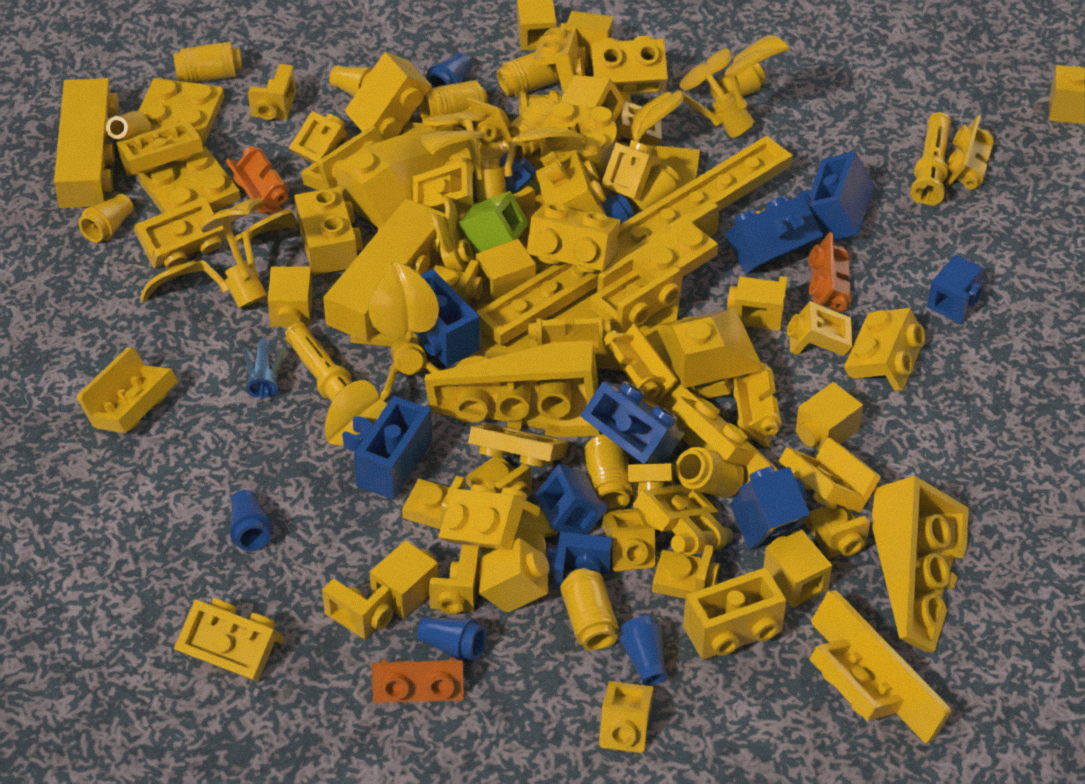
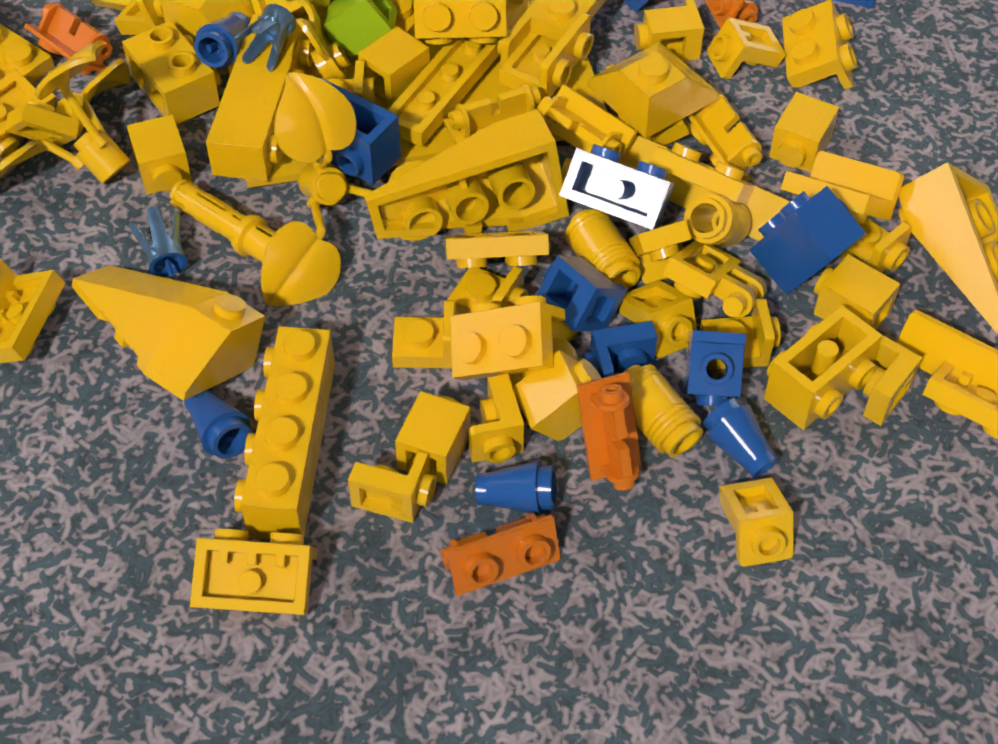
camera: 20 degrees left, 5 degrees up
(206, 247) = (40, 121): none -> yellow bracket
(245, 440) = (179, 330): none -> yellow wedge
(296, 542) = (288, 433): none -> yellow brick
(369, 215) = (215, 40): none -> blue cone
(391, 447) = (350, 289): blue brick -> none
(411, 215) = (272, 26): none -> flat silver piece
(538, 611) = (610, 430): none -> orange hinge
(663, 581) = (710, 345): none -> blue brick
(788, 643) = (890, 380): none -> yellow bracket

